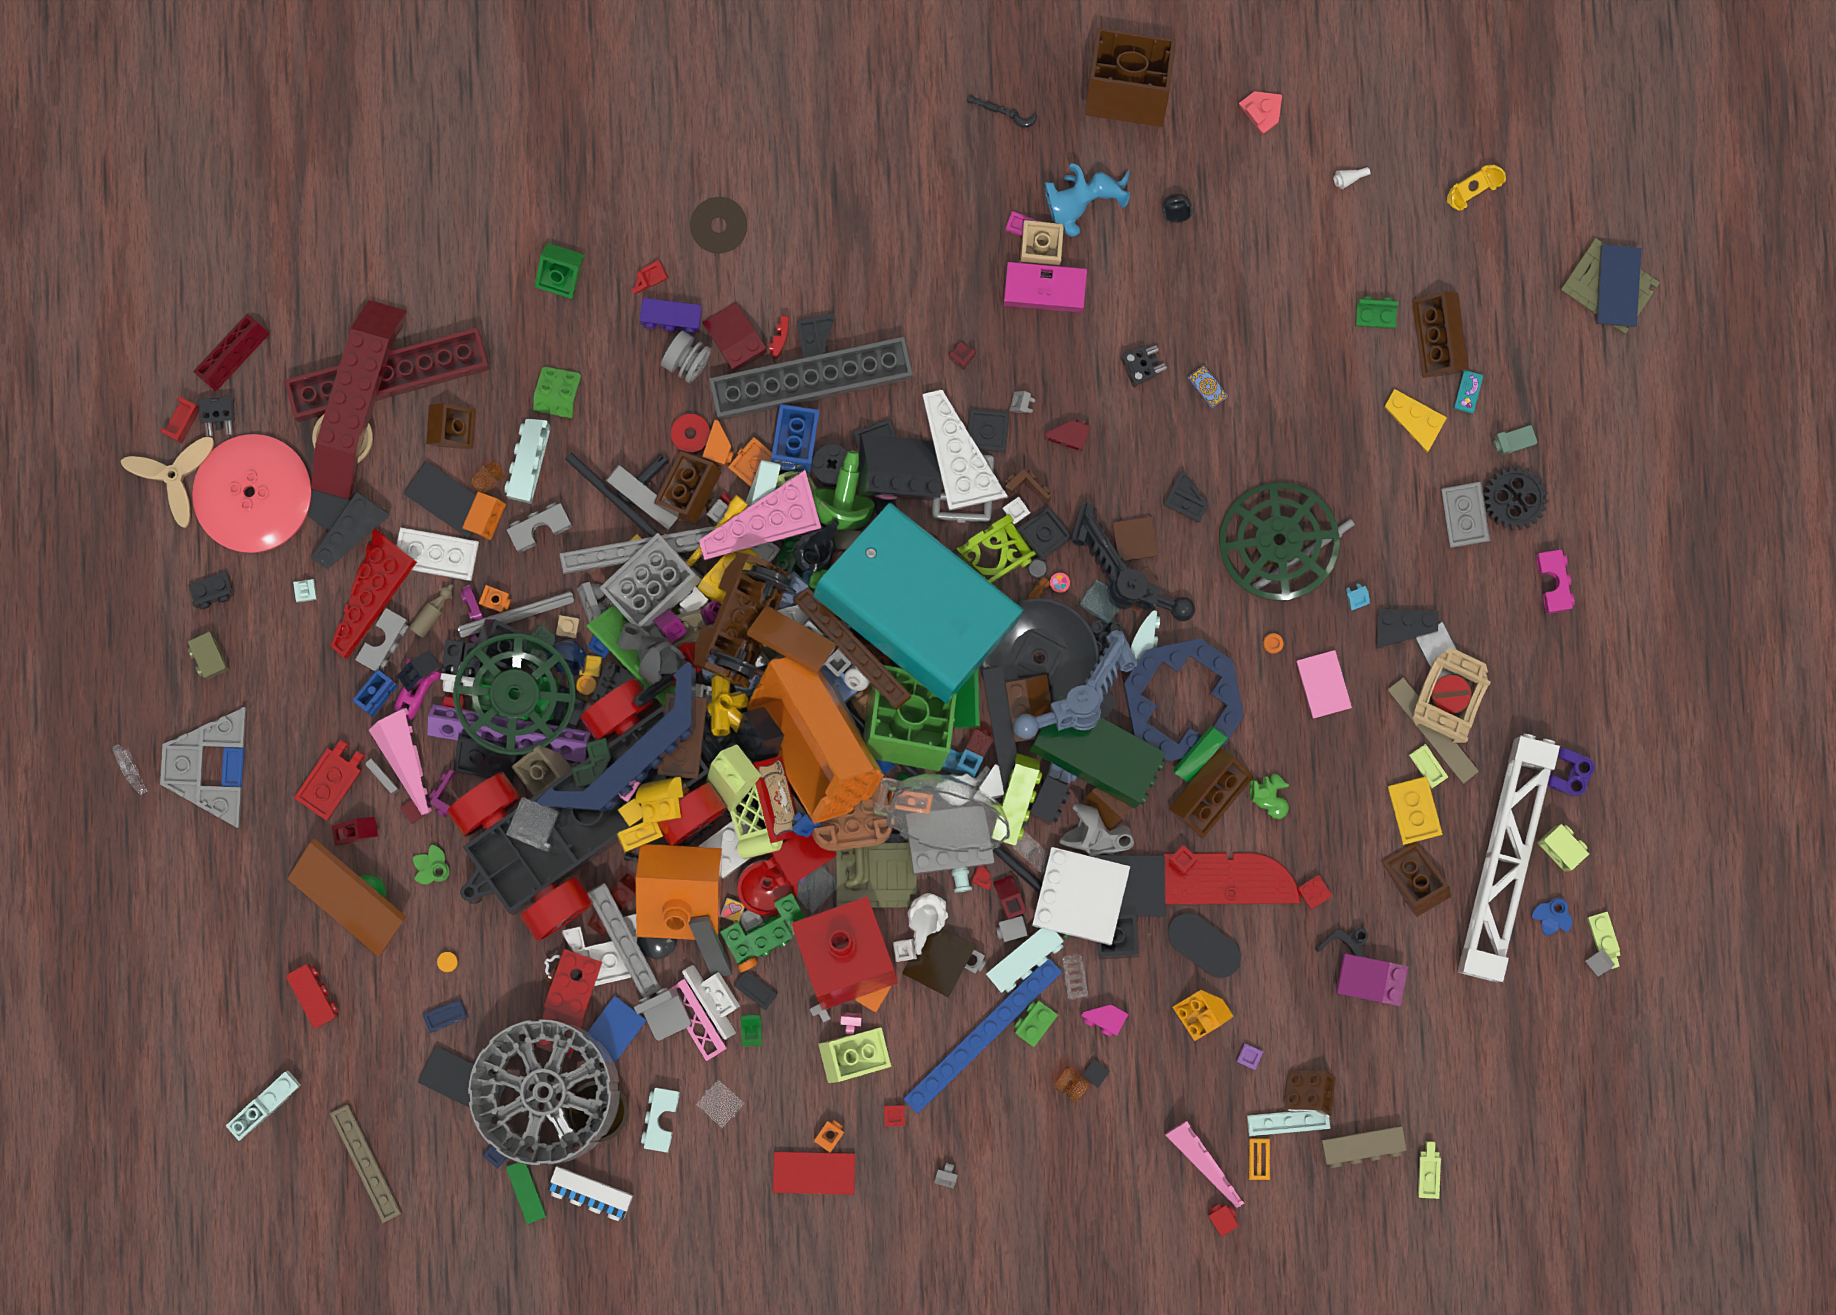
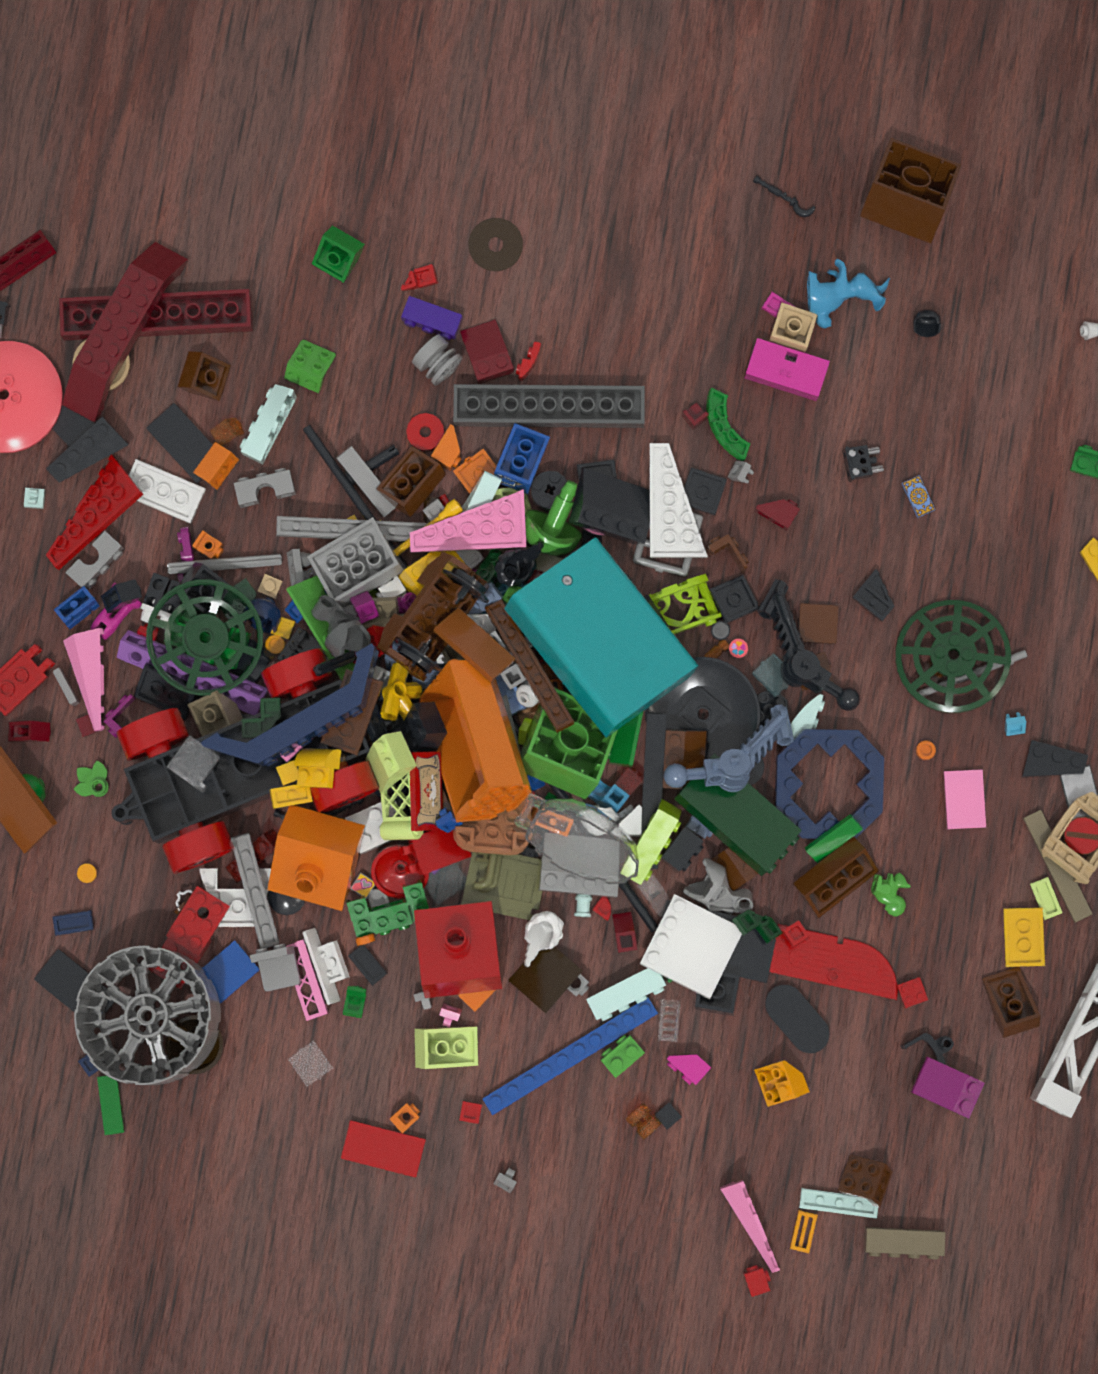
camera: 15 degrees right, 0 degrees up
(430, 613) = (146, 544): dark tan wheel -> none
(590, 1192) = (170, 1119): white brick -> none
(656, 1137) = (243, 1081): light aqua arch -> none
(710, 946) = (334, 914): dark grey tile -> none
(814, 334) = (562, 365): black wing -> none
(861, 715) = (523, 730): none -> lime tile
(904, 950) = (515, 959): white tile -> none
(990, 360) = (726, 436): none -> green tile
(1011, 929) = (619, 962): light grey brick -> none
(1016, 510) = (713, 571): white plate -> none
(1150, 857) = (764, 924): none -> dark green tile
(1249, 1056) = (816, 1133): medium lavender tile -> none
(1262, 110) = (1027, 249): coral plate -> none
(1429, 1172) = (961, 1281): yellowish green hinge -> none

